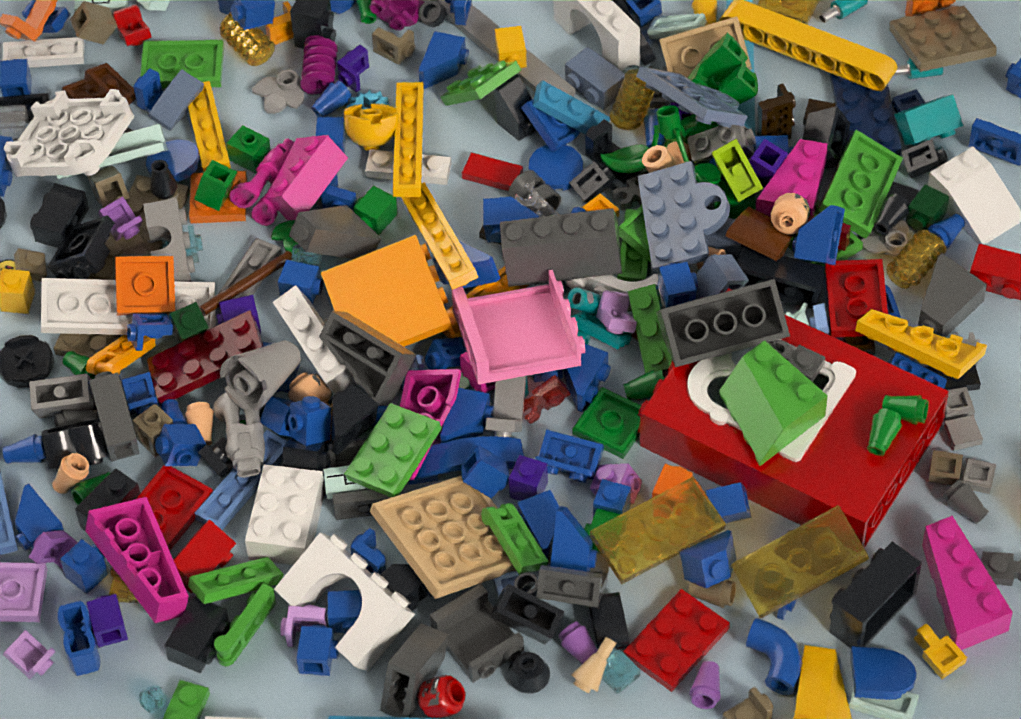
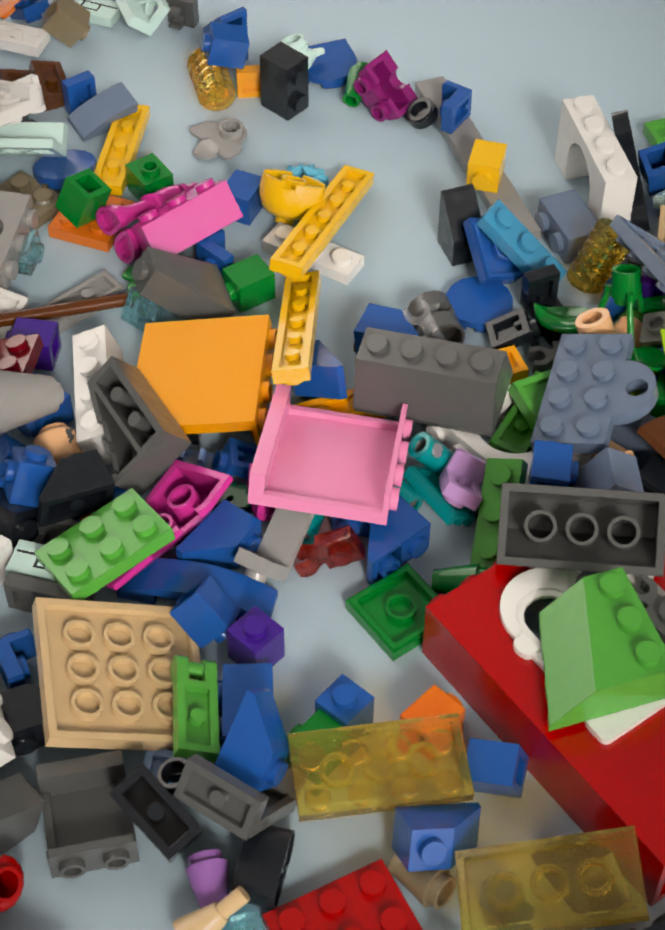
camera: 20 degrees right, 5 degrees down
(131, 26) = (104, 34): red bracket -> none
(162, 182) = (34, 177): black cone -> none
(197, 57) = (145, 81): bright green plate -> none
(302, 275) = (124, 324): blue brick -> none
(318, 64) = (270, 124): magenta piece -> none
(331, 99) = (269, 157): blue cone -> none
(351, 66) = (307, 136): dark purple bracket -> none
(391, 46) = (361, 132): dark tan bracket -> none
(442, 58) = (407, 158): blue slope -> none
(480, 82) = (431, 185): bright green plate -> none
(491, 171) = (398, 283): red tile -> none
(528, 673) = (125, 895): black cone -> none
(570, 455) = (325, 631): blue bracket -> none
(619, 474) = (375, 680): medium lavender bracket -> none

